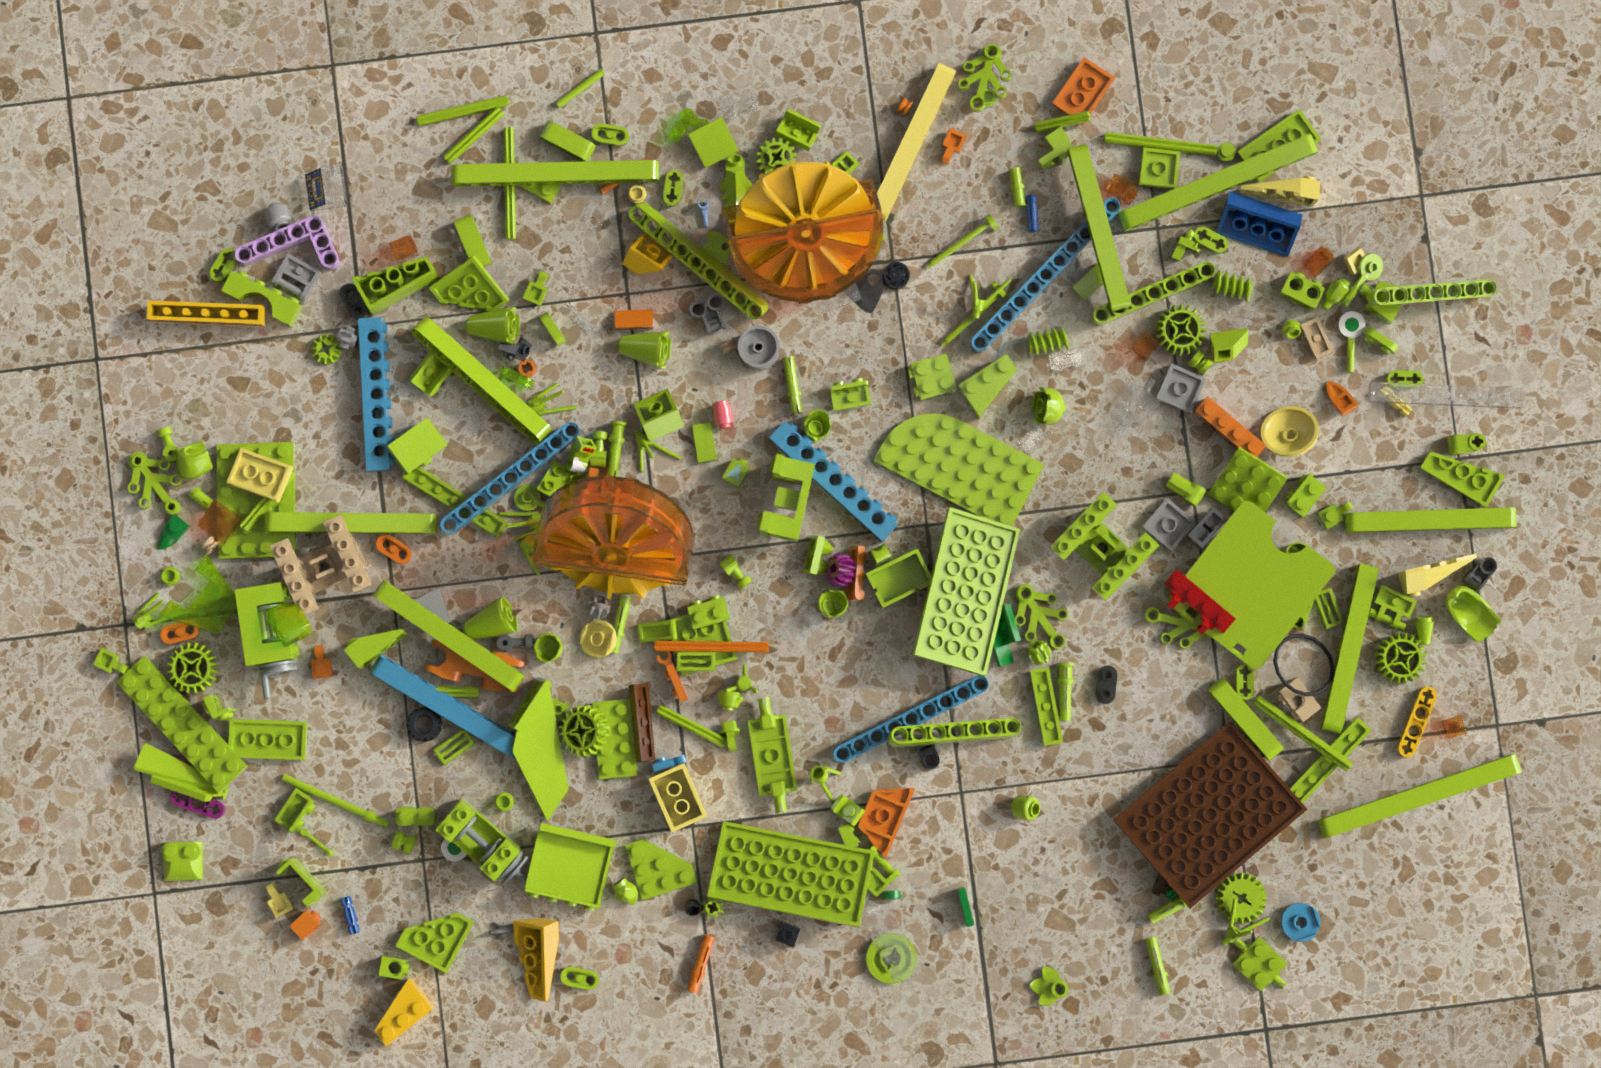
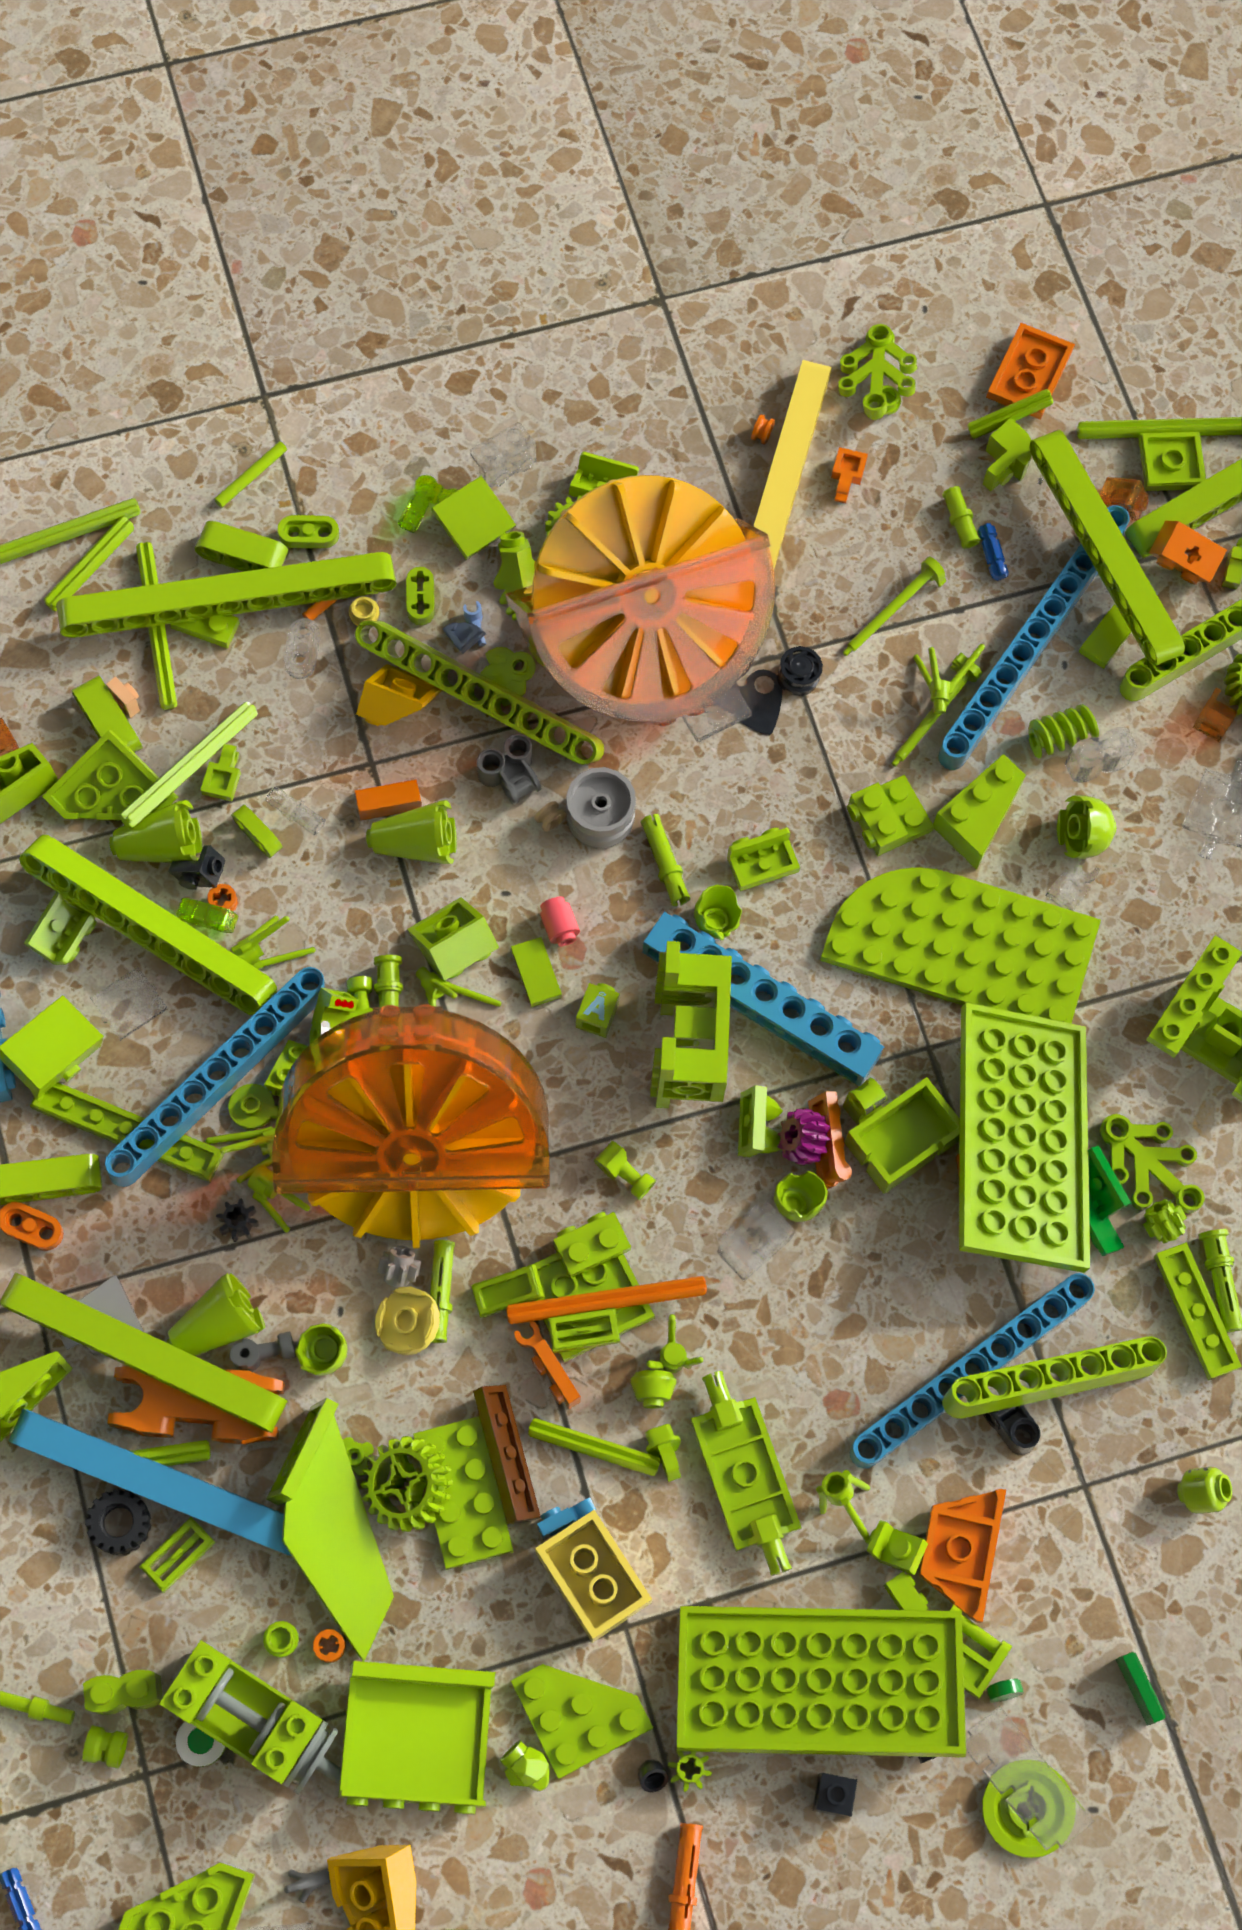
camera: 15 degrees left, 15 degrees down
(485, 229) = (124, 696): none -> light nougat plate
(508, 560) = (243, 1227): none -> black gear
(518, 282) = (188, 765): none -> axle
(530, 803) = (327, 1635): none -> orange bush
(695, 219) = (464, 635): none -> sand blue tile
(1145, 228) = (1175, 541): none -> orange brick

